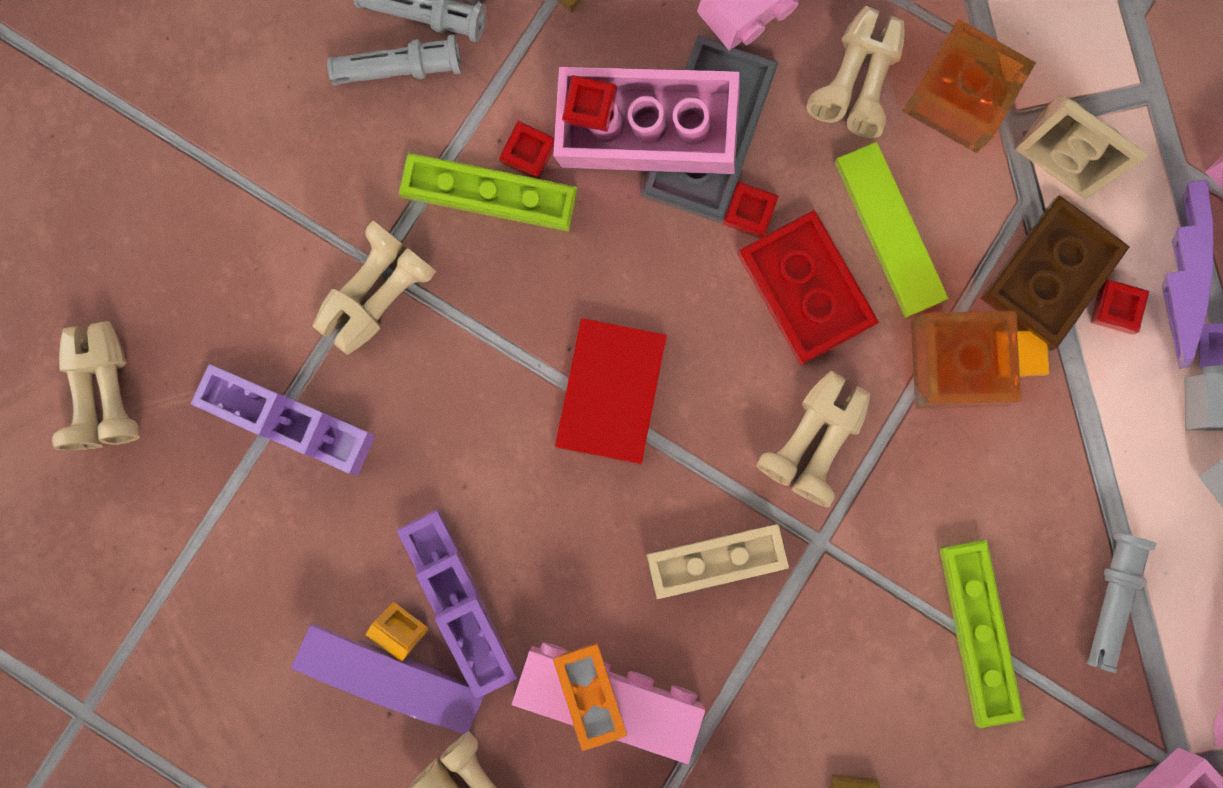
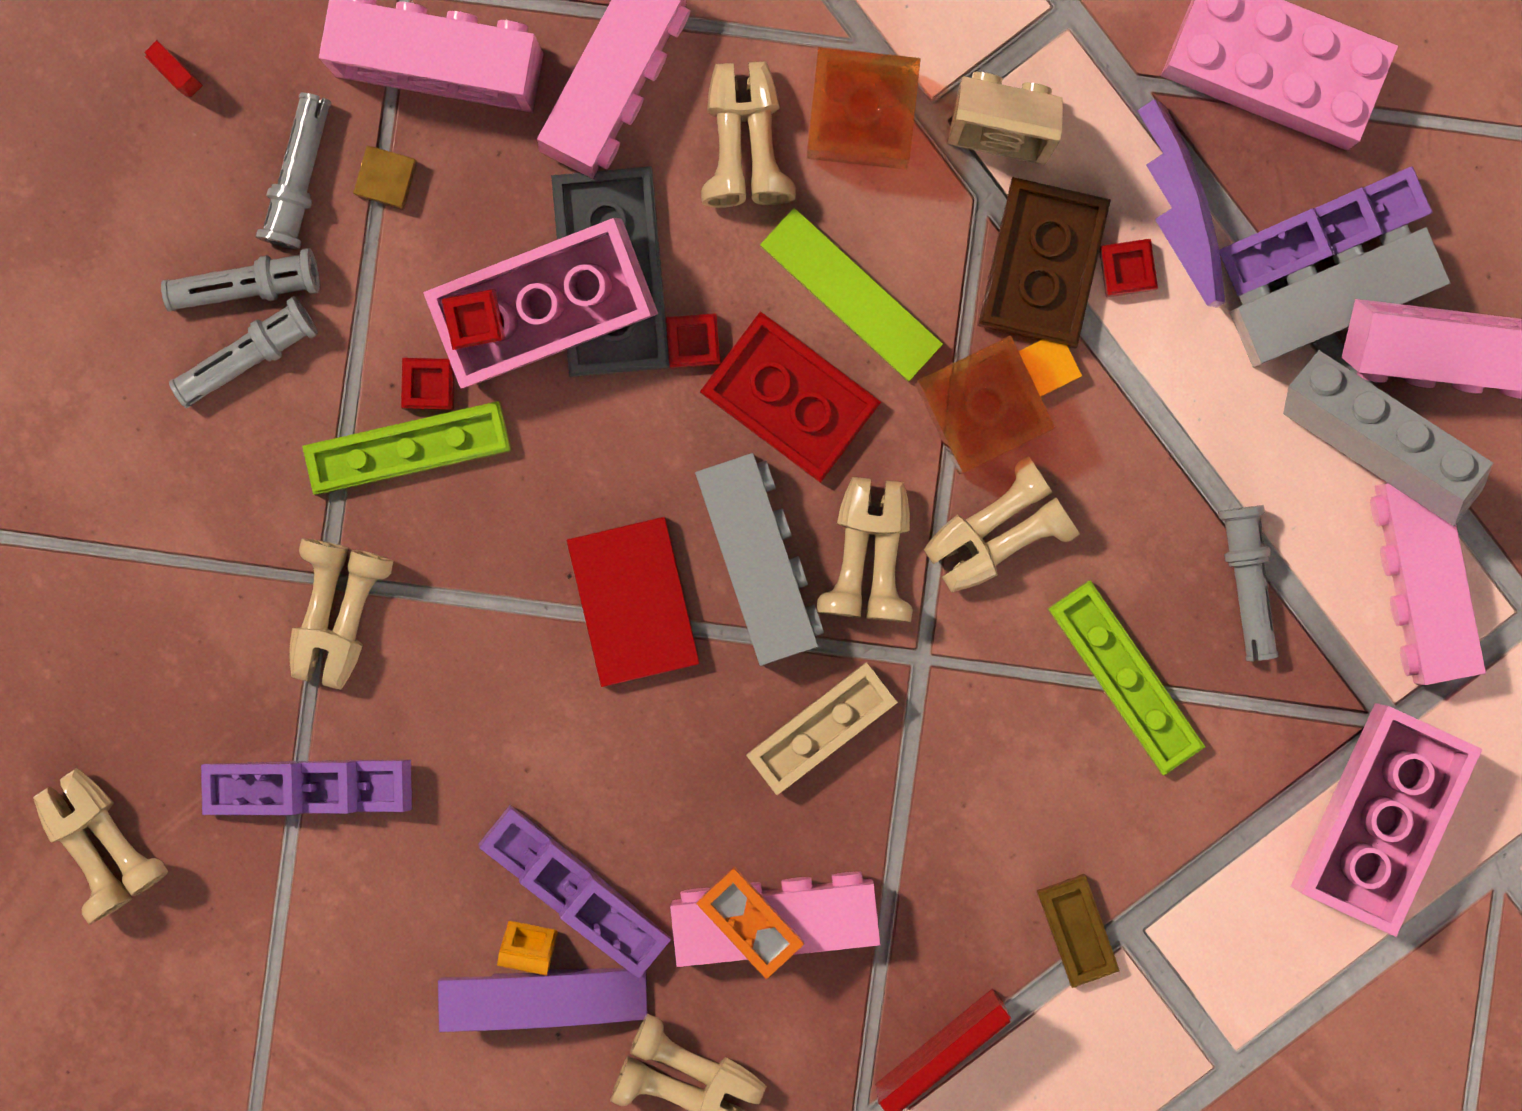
camera: 20 degrees left, 5 degrees up
(727, 401) = (757, 559): none -> light grey brick
(972, 442) = (1046, 522): none -> tan piece

